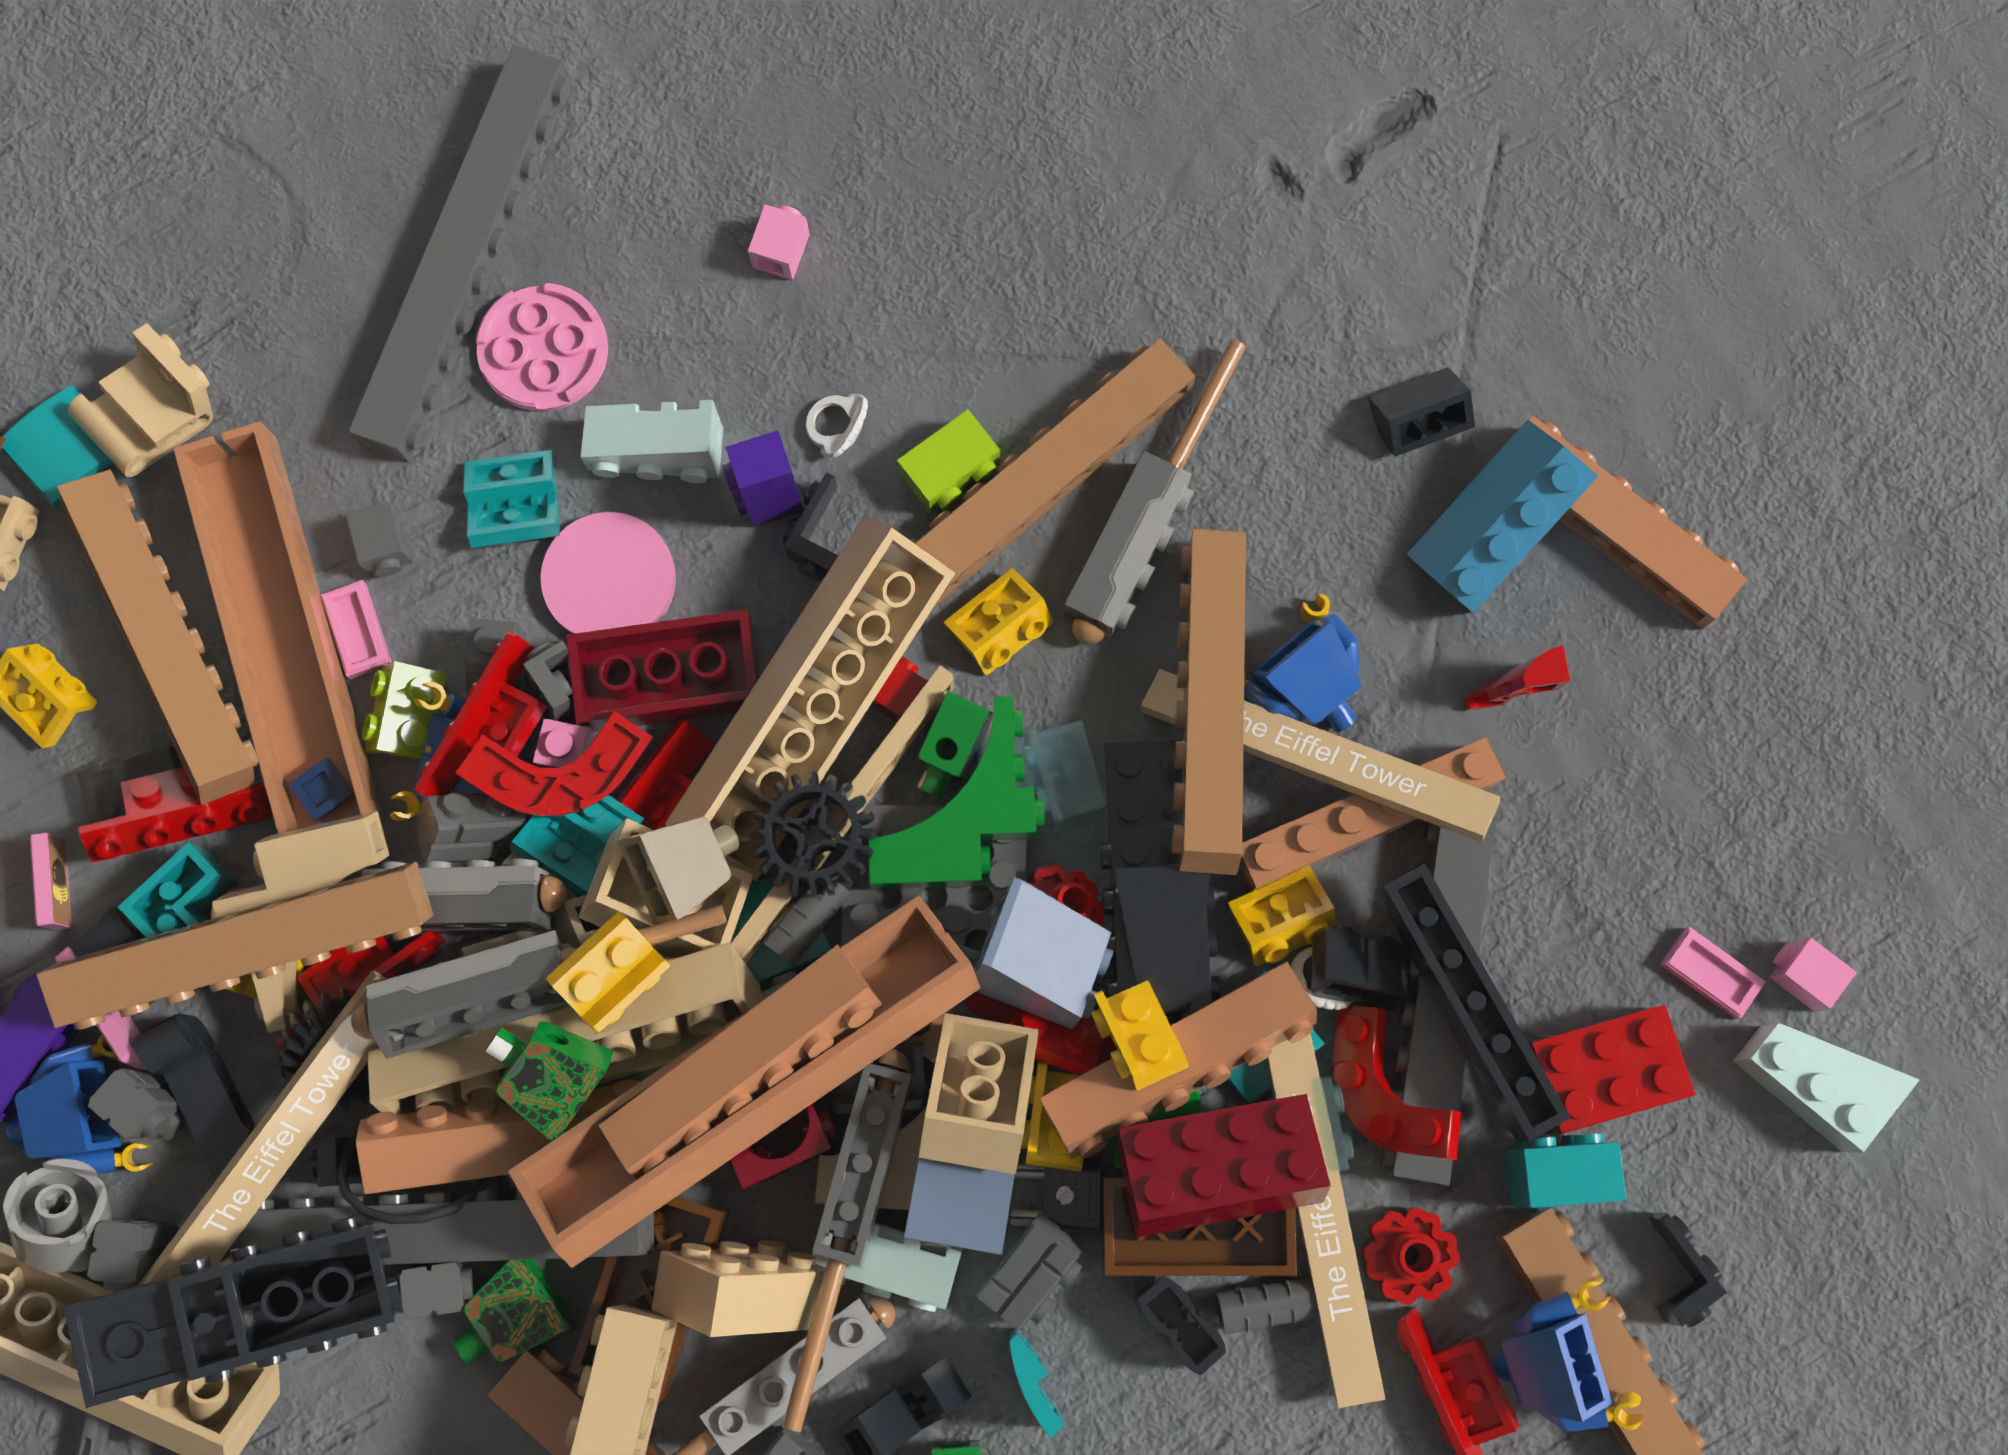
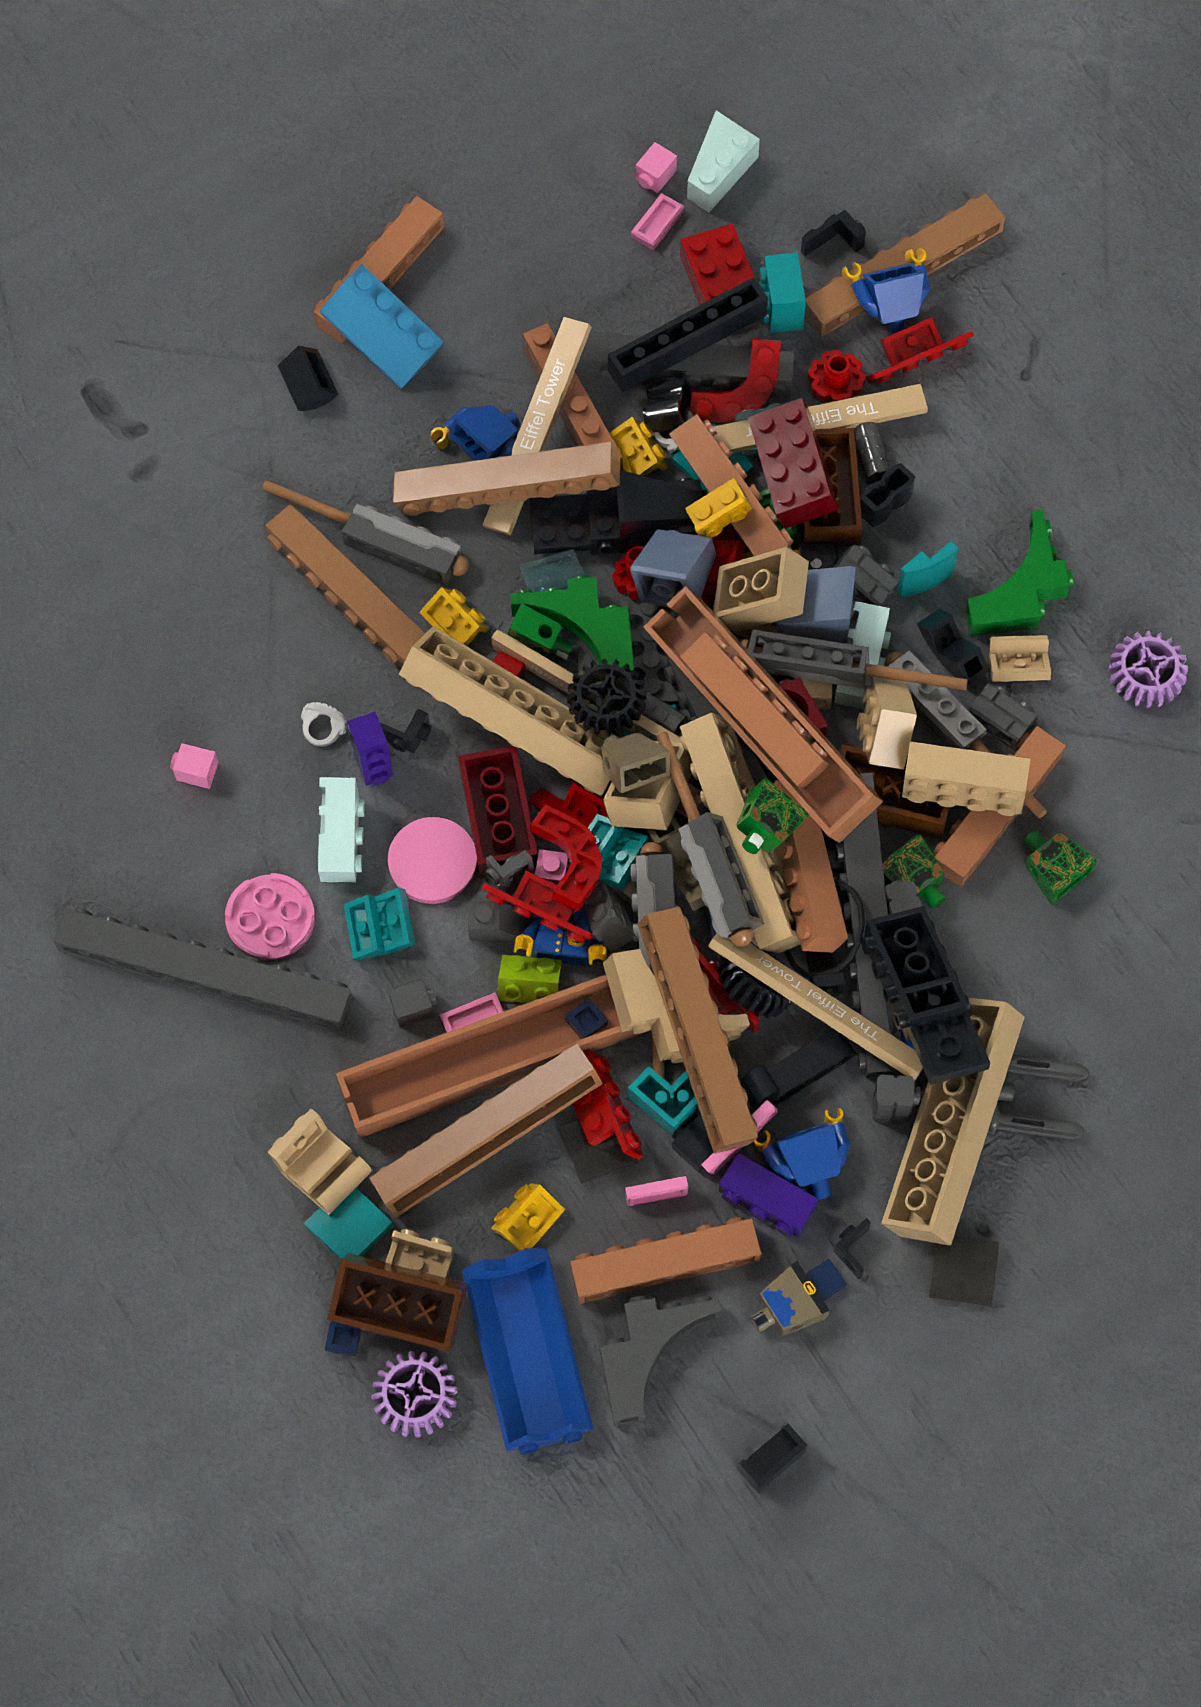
camera: 90 degrees left, 10 degrees down
(55, 1215) = (876, 1140): light grey brick -> none
(138, 1105) = (801, 1104): dark grey brick -> none
(608, 972) = (705, 786): yellow bracket -> none
(950, 462) = (349, 652): lime brick -> none
(1537, 675) = (484, 317): red slope -> none

